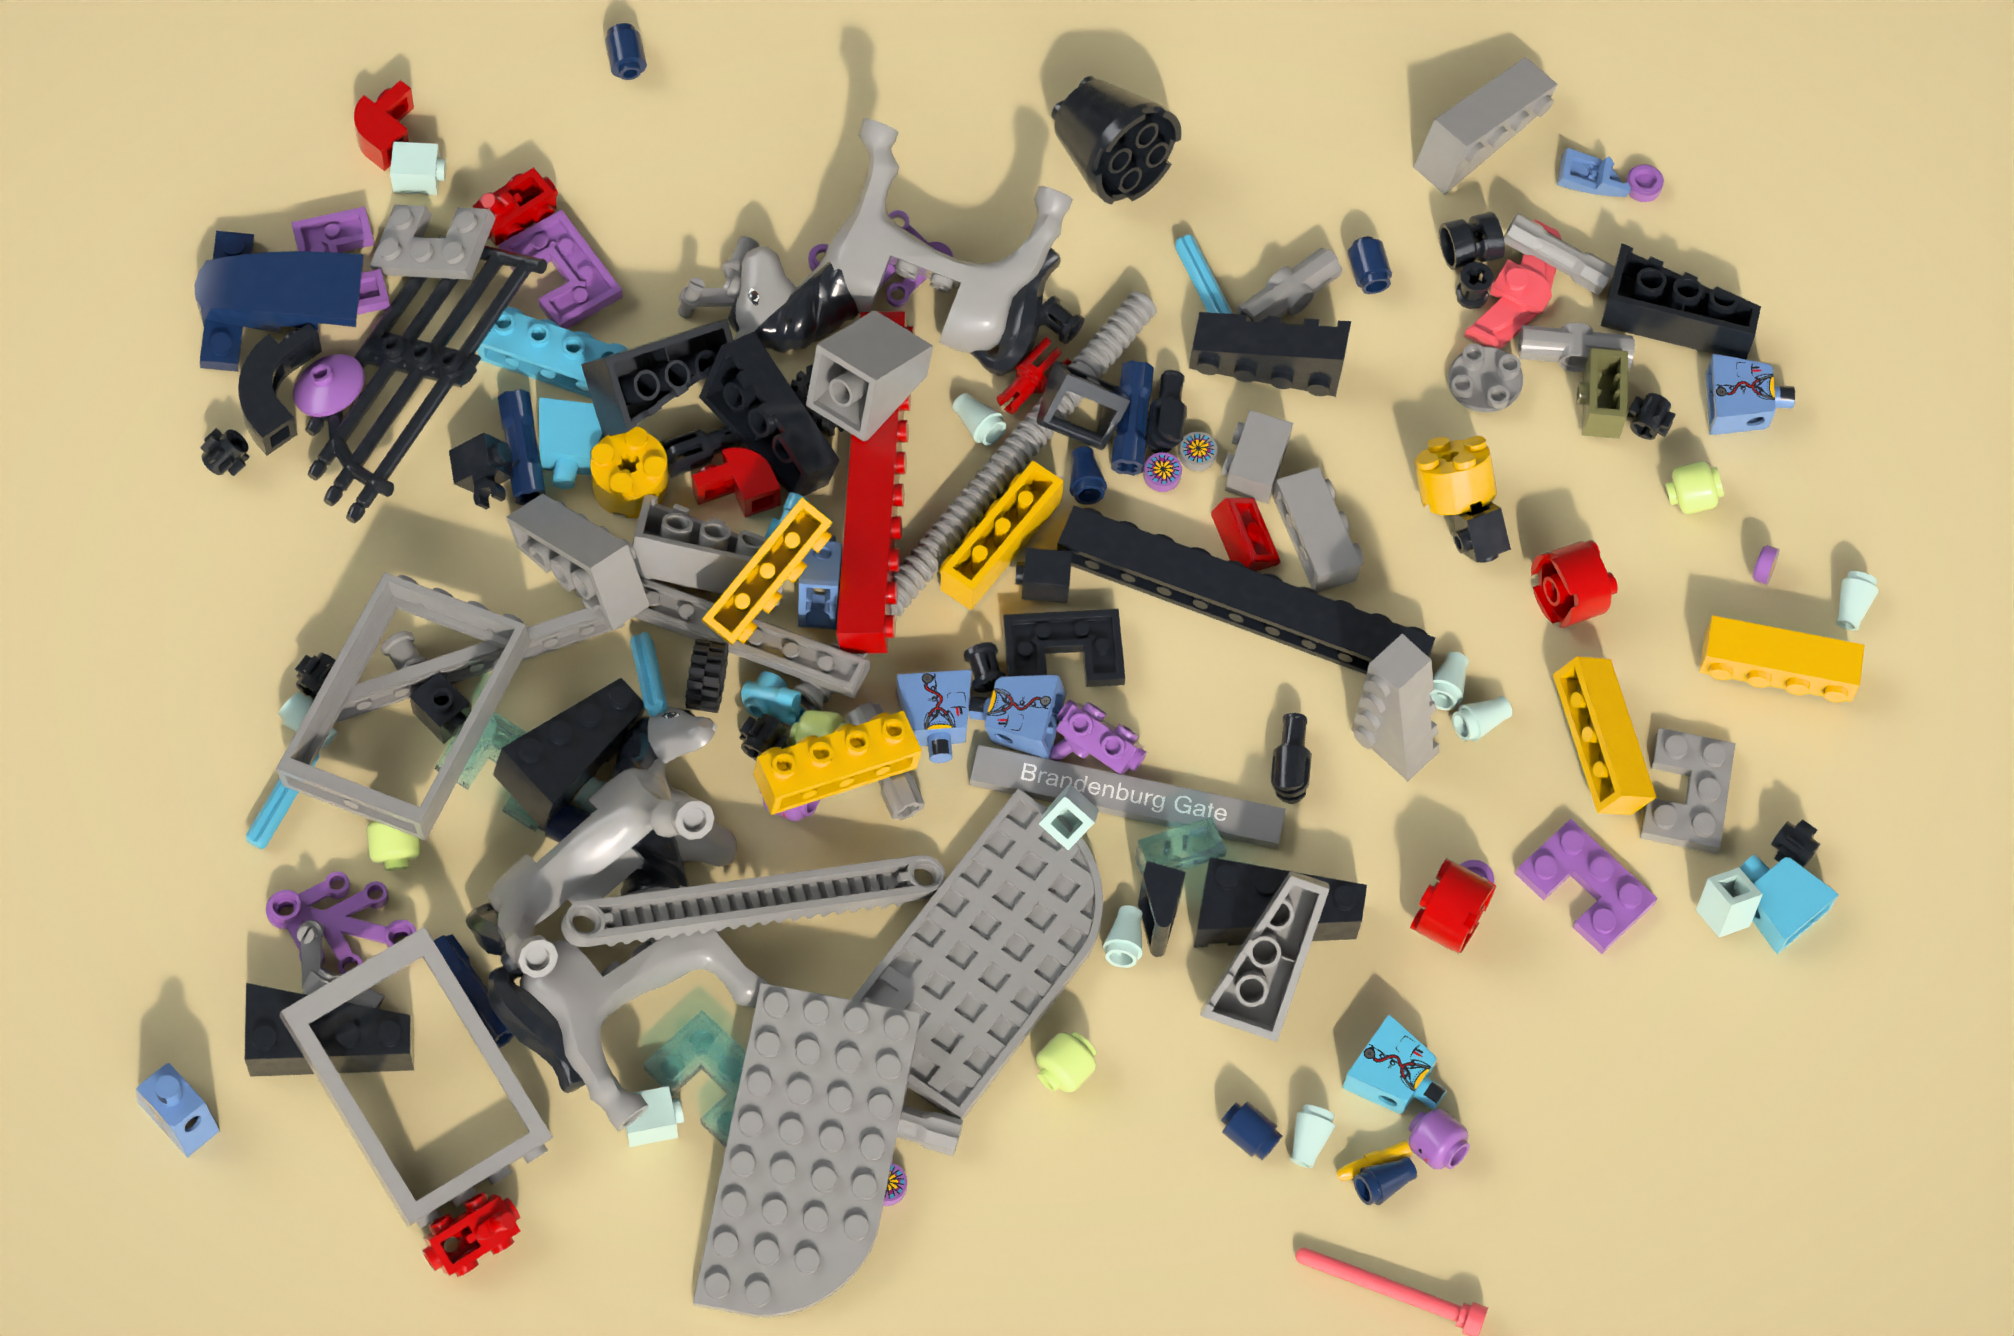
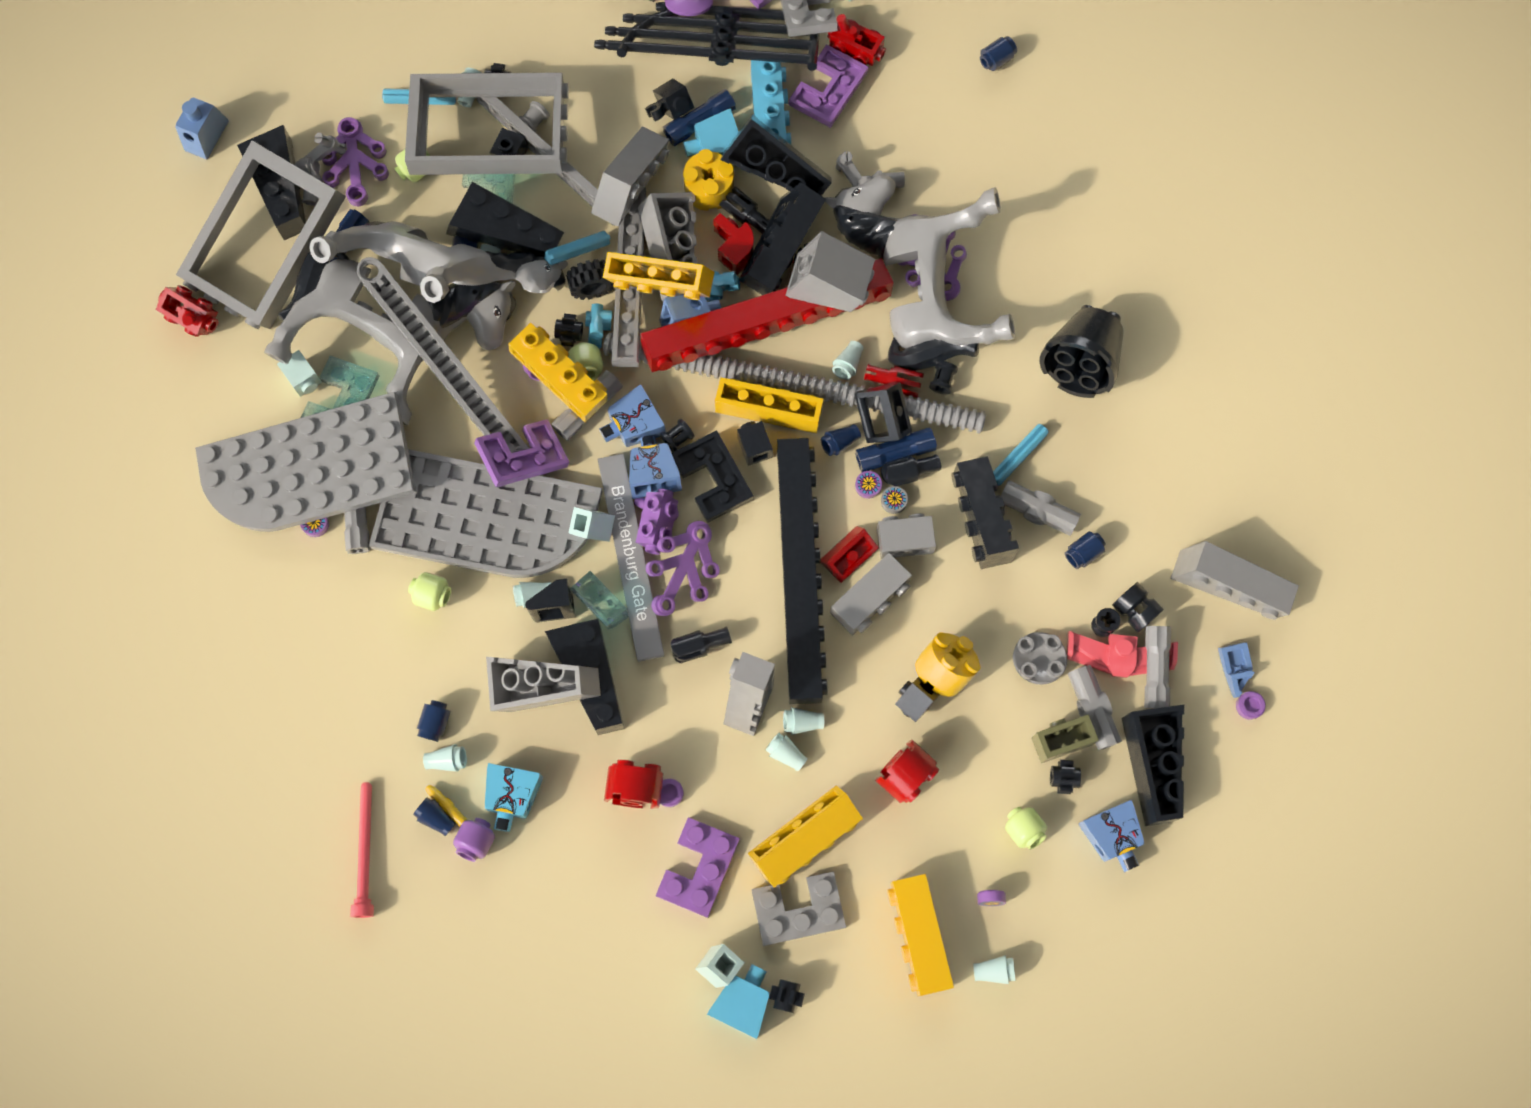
camera: 70 degrees right, 10 degrees up
(943, 878) = (541, 458): none -> medium lavender plate
(1145, 701) = (684, 566): none -> medium lavender plant

